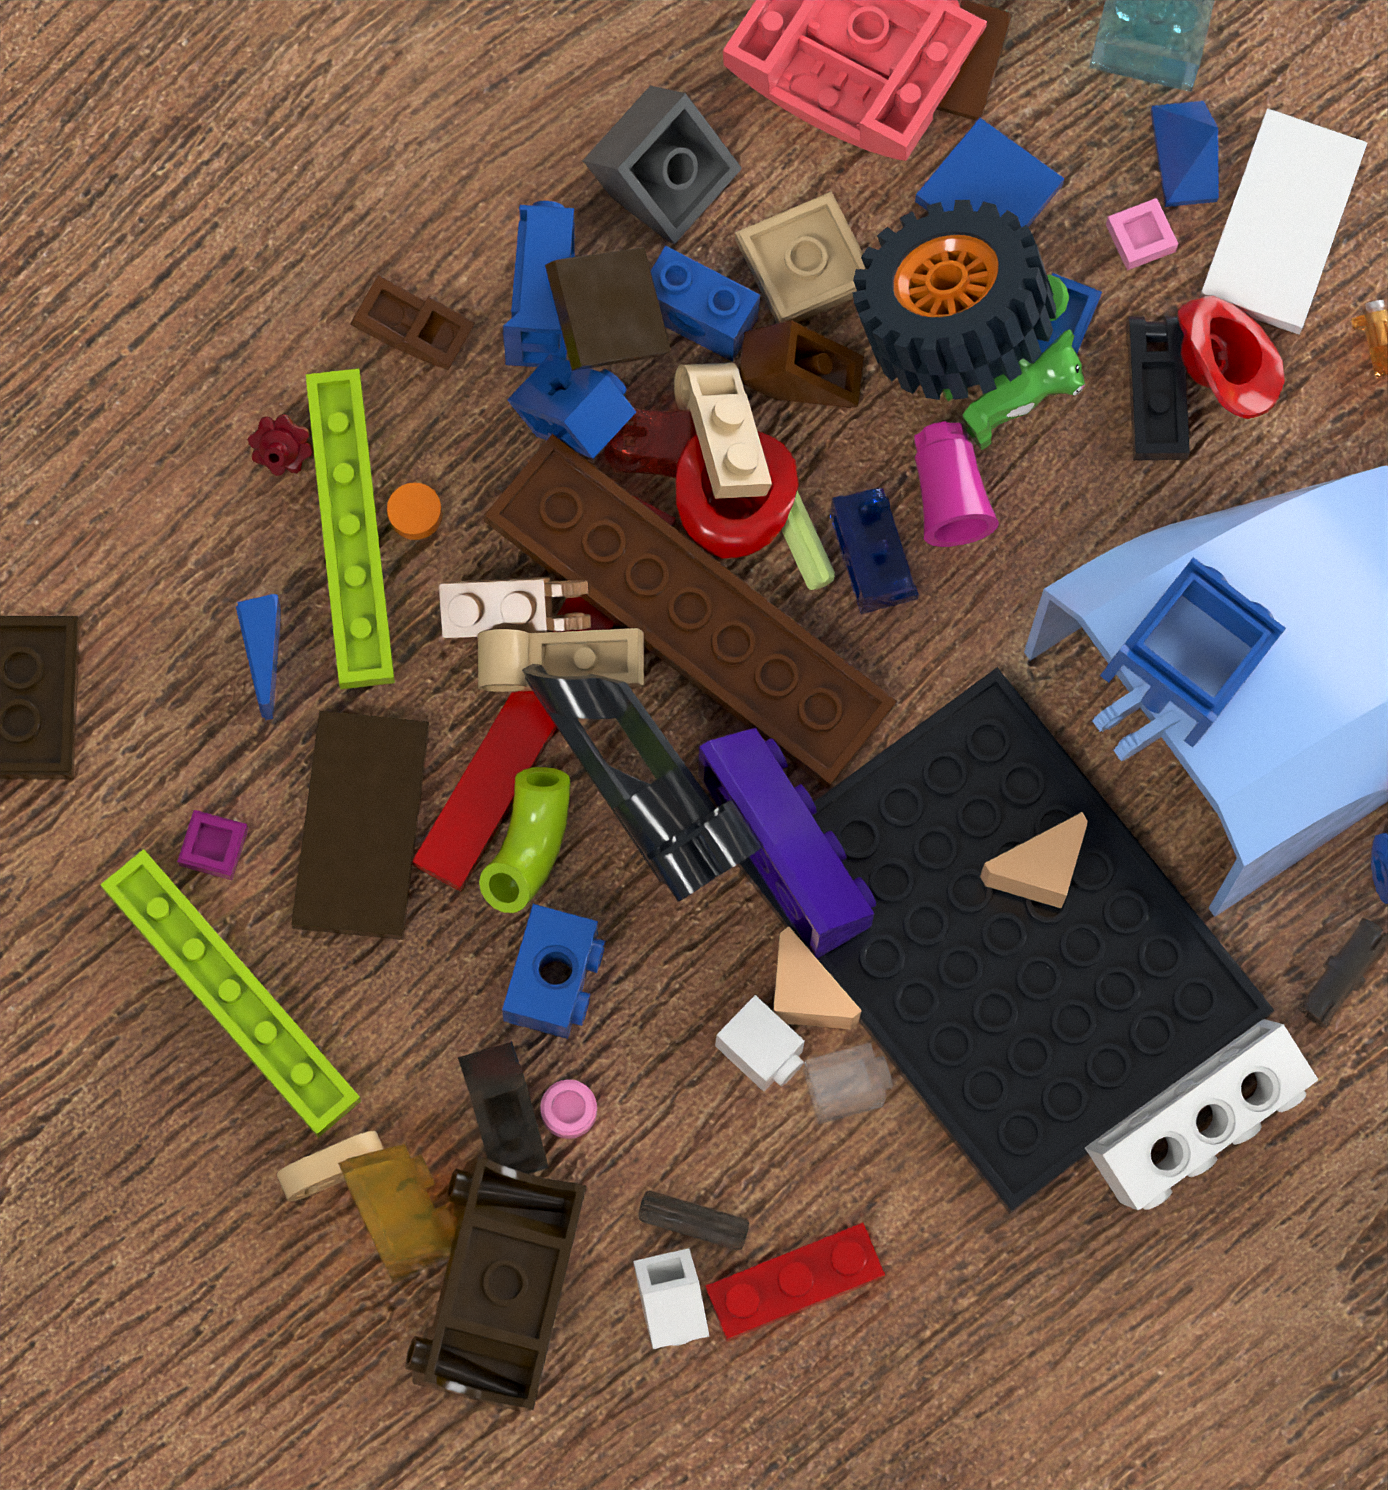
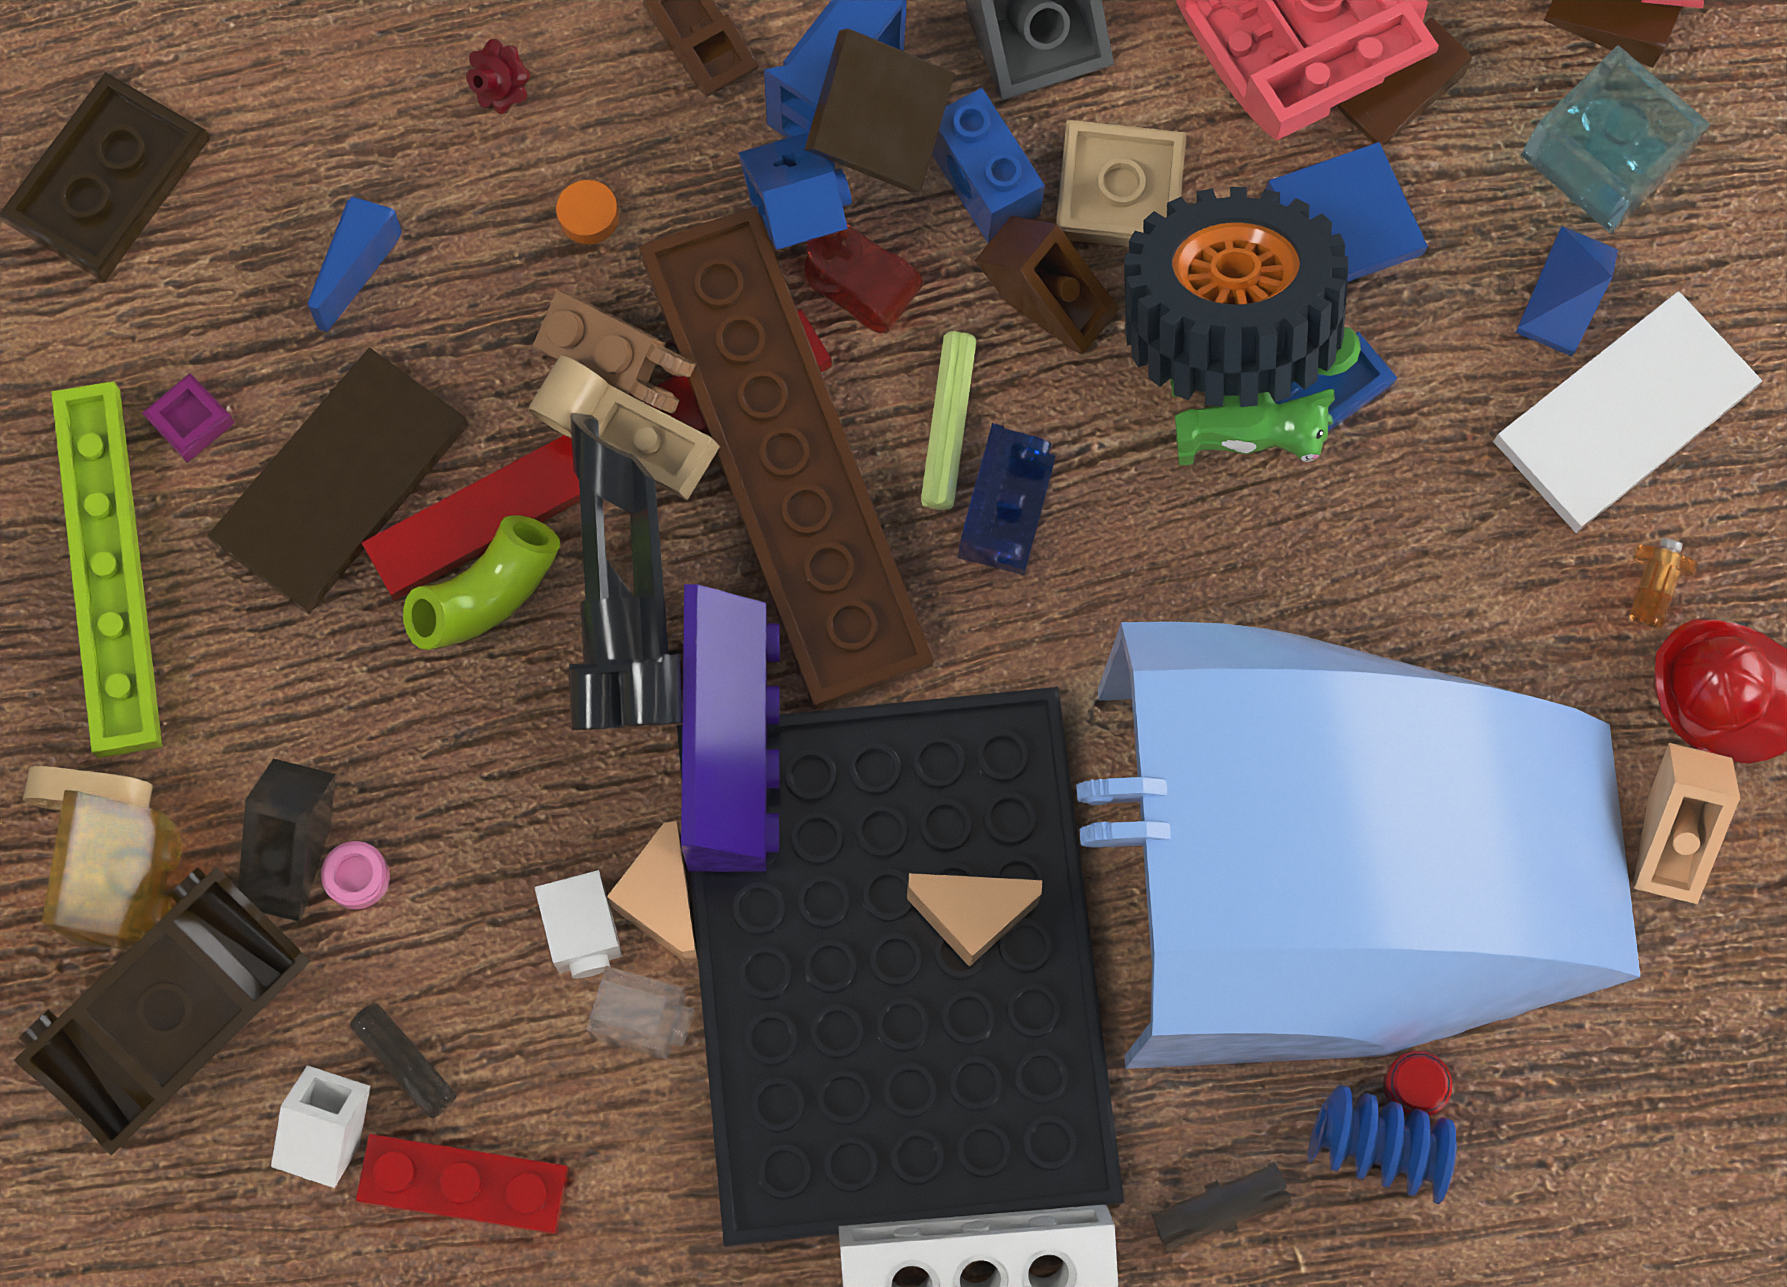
camera: 30 degrees right, 0 degrees up
(349, 529) = (511, 193): lime plate -> none
(548, 939) = (431, 693): blue brick -> none
(723, 428) = (927, 297): tan plate -> none
(735, 524) = (902, 360): red hat -> none
(951, 487) = (1122, 482): dark pink plant -> none
(1141, 234) = (1473, 343): bright pink plate -> none
(1157, 390) = (1393, 505): black plate -> none
(1228, 607) = (1169, 790): blue window -> none
(1230, 356) = (1503, 519): red hat -> none

